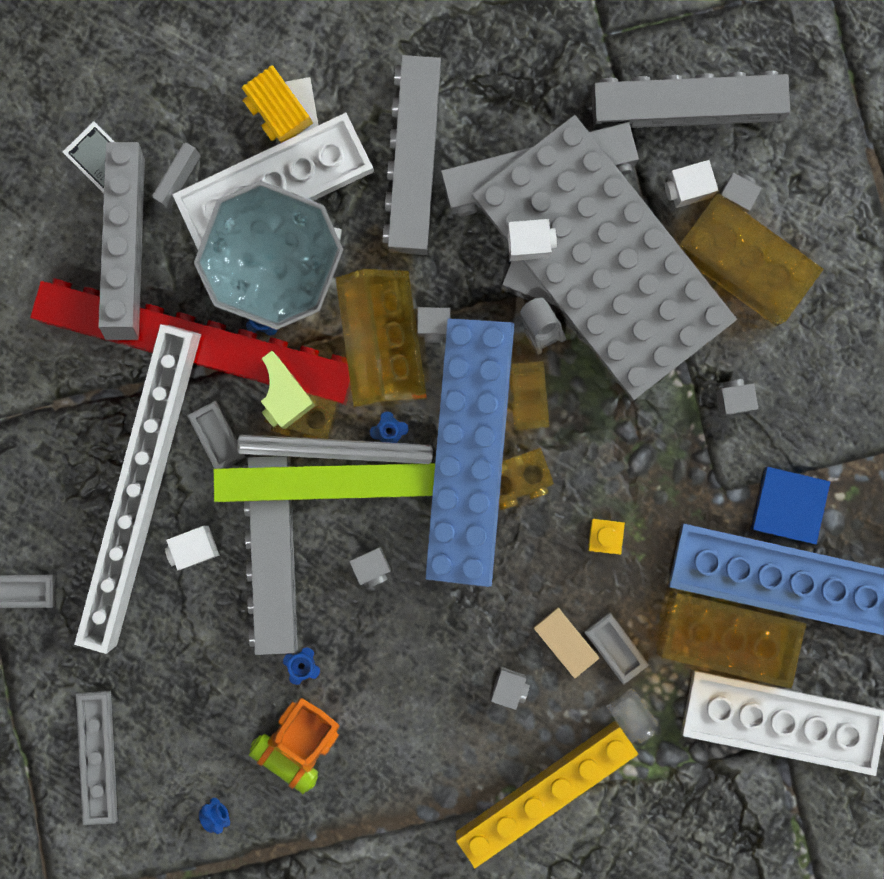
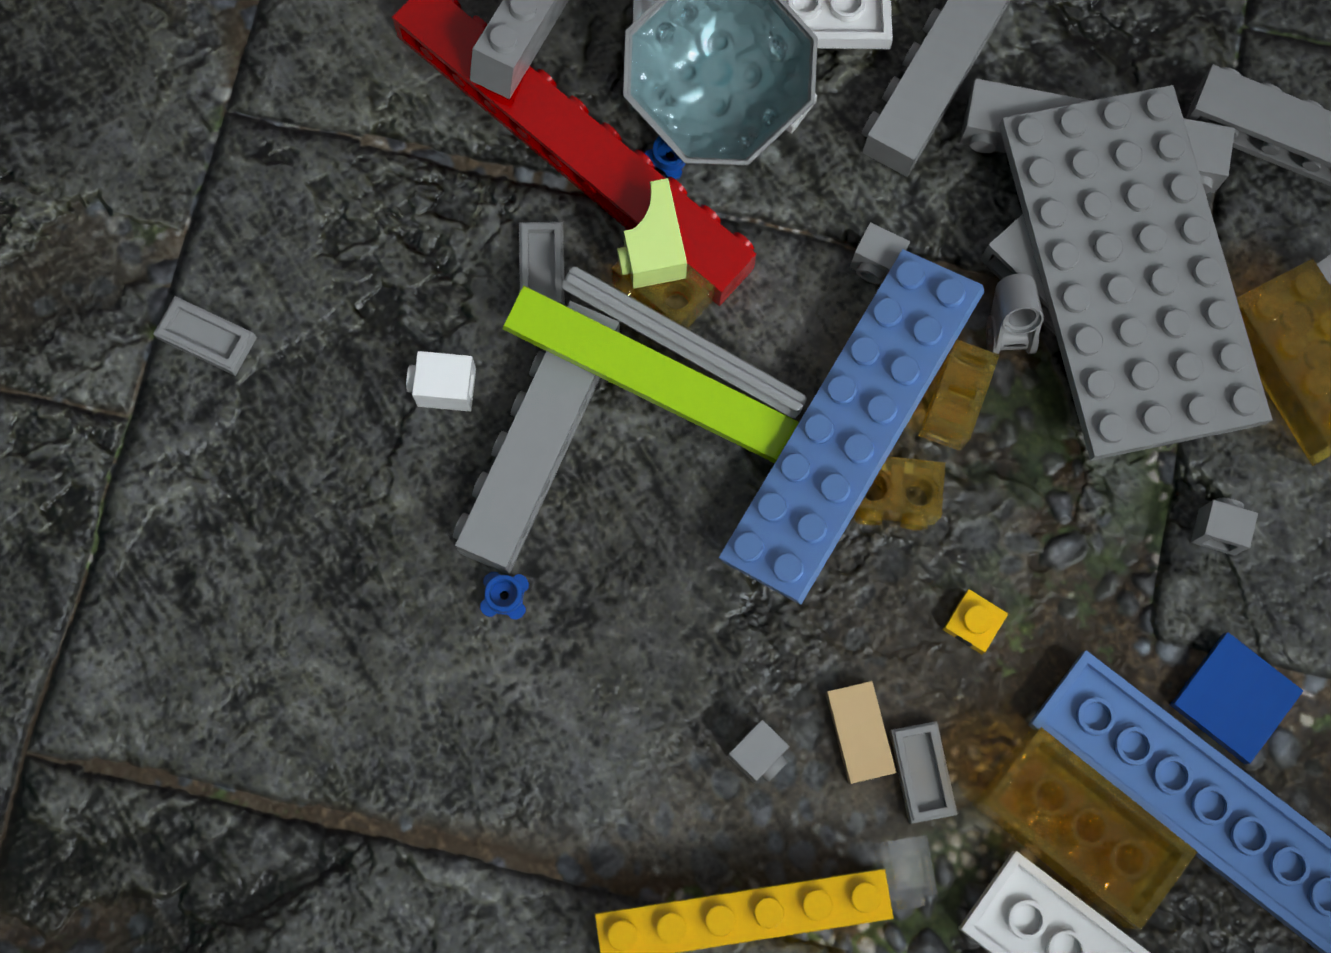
camera: 20 degrees right, 10 degrees down
(96, 758) = (185, 585): light grey tile -> none
(137, 488) = (415, 270): white brick -> none
(214, 816) = (294, 731): blue plate -> none
(296, 745) = (449, 689): orange piece -> none
(371, 567) = (655, 512): light grey plate -> none
(380, 337) = (806, 235): clear yellow brick -> none
(388, 421) = (763, 346): blue plate -> none
(530, 239) = (1054, 196): white brick -> none
(691, 184) = (1279, 240): white brick -> none

